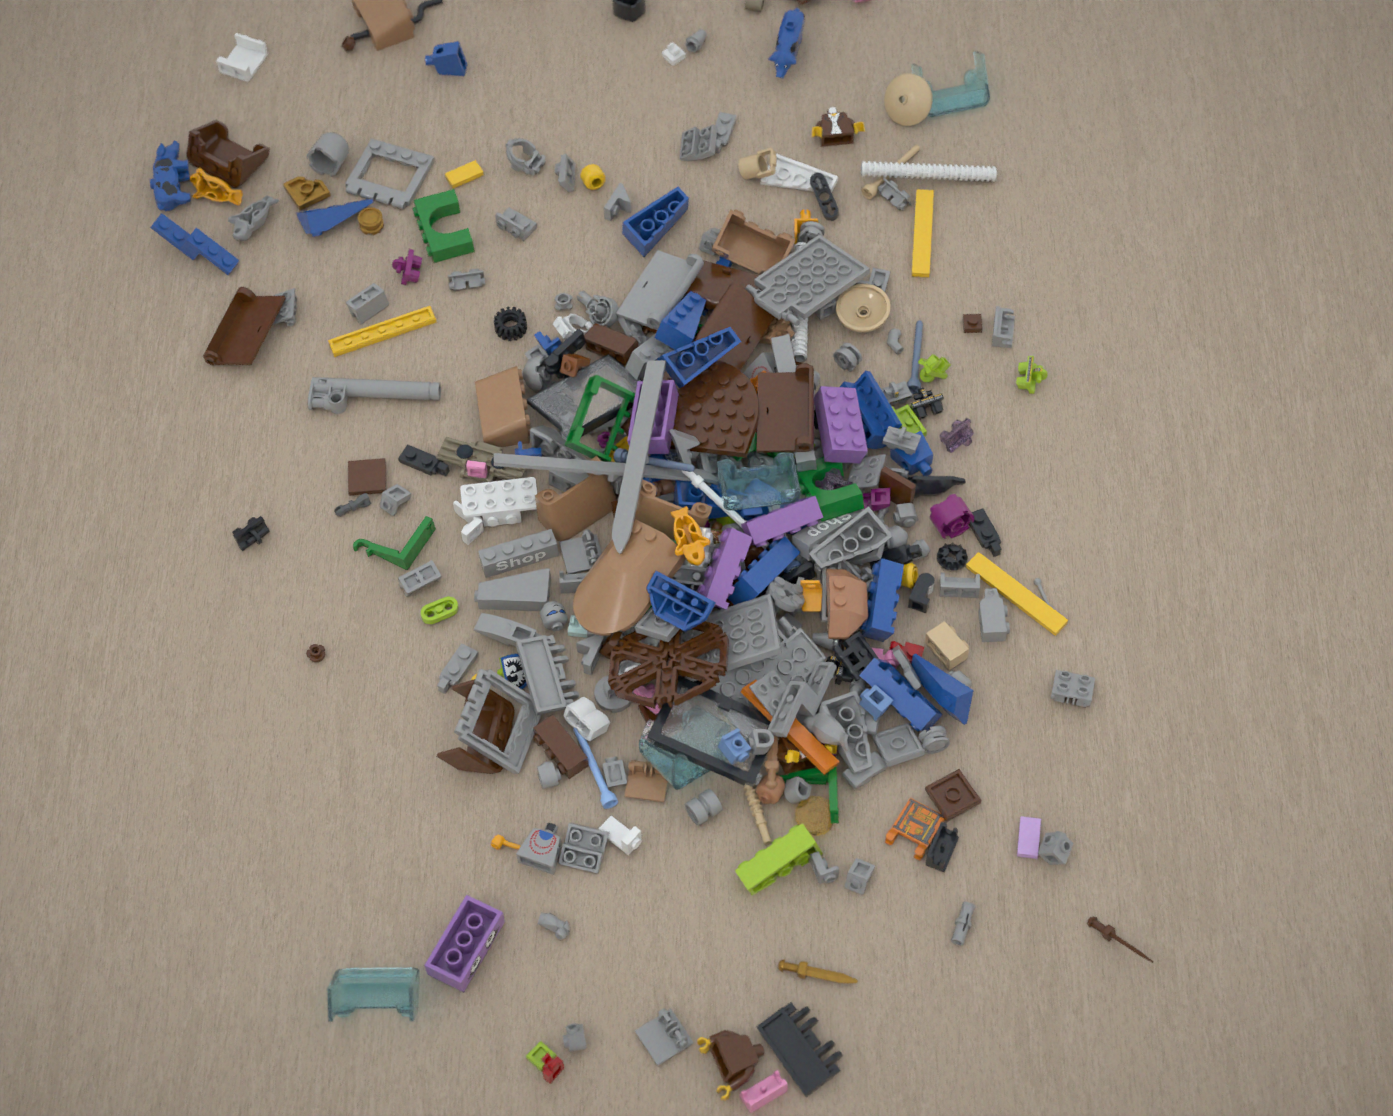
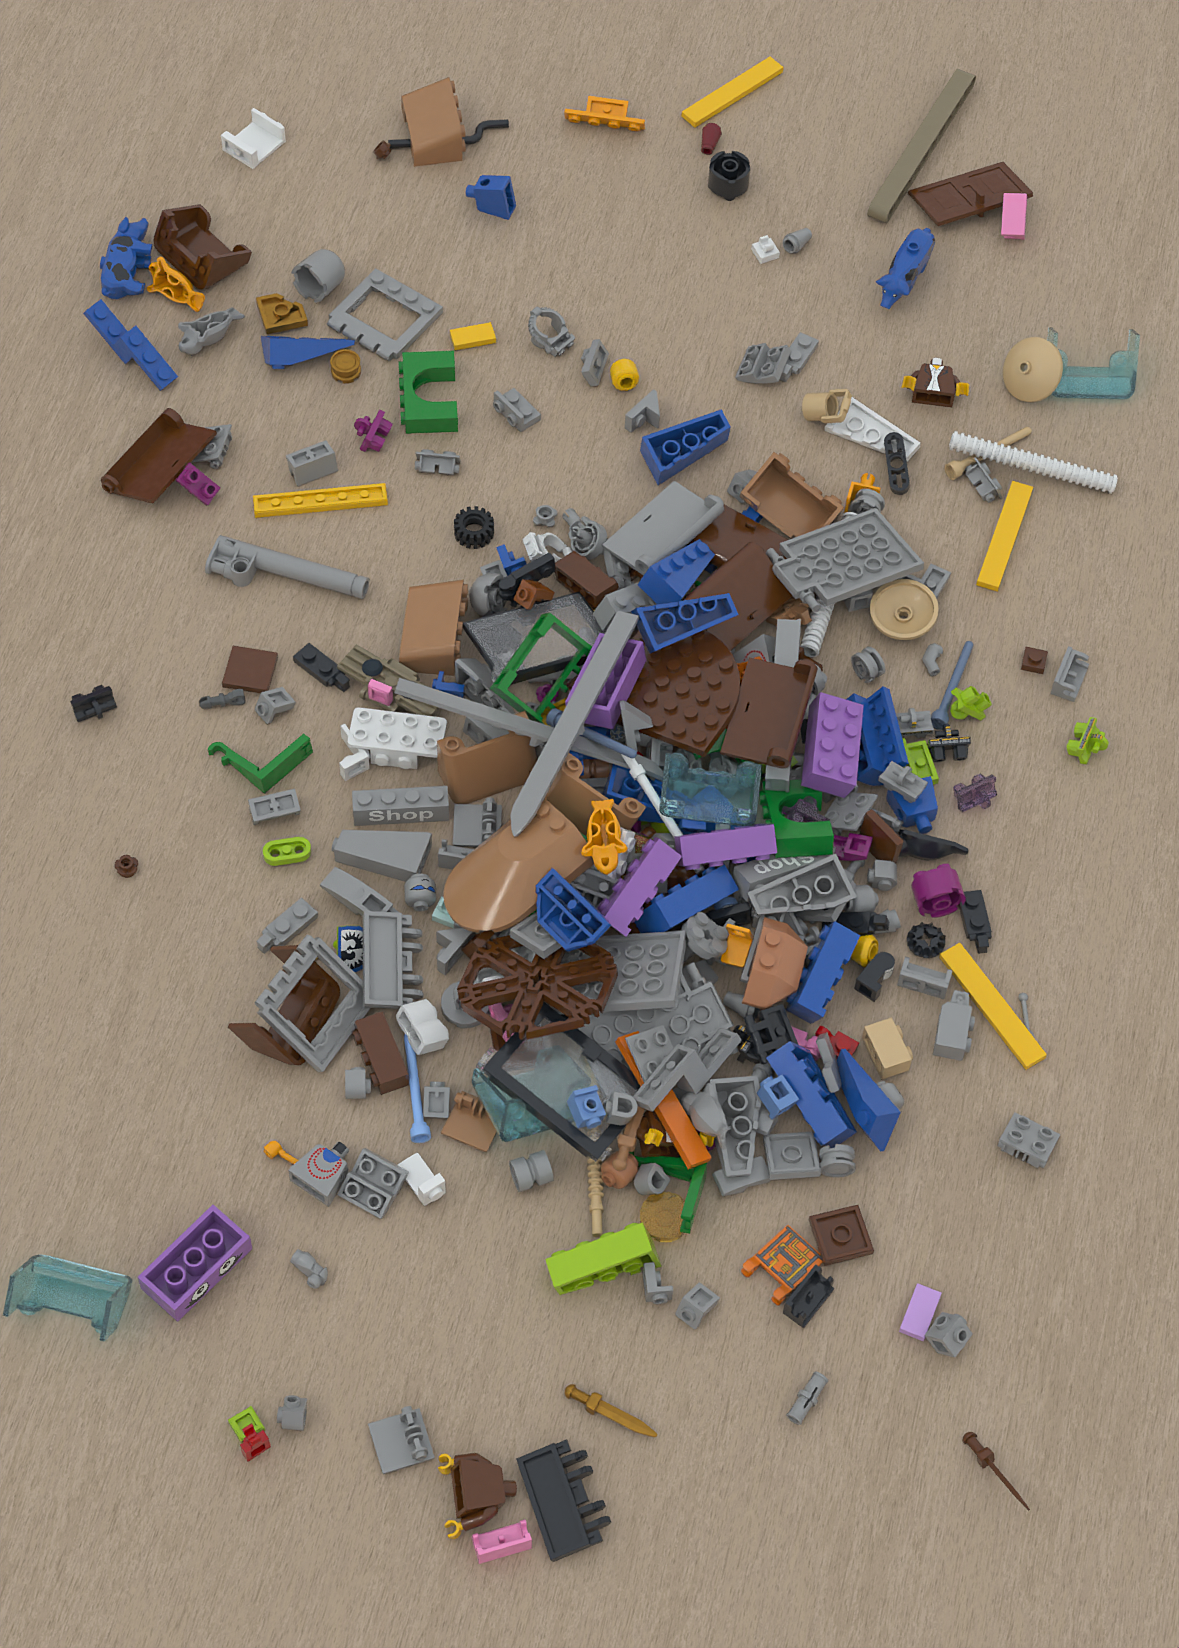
camera: 10 degrees right, 0 degrees up
(282, 341) = (198, 484): none -> magenta hips

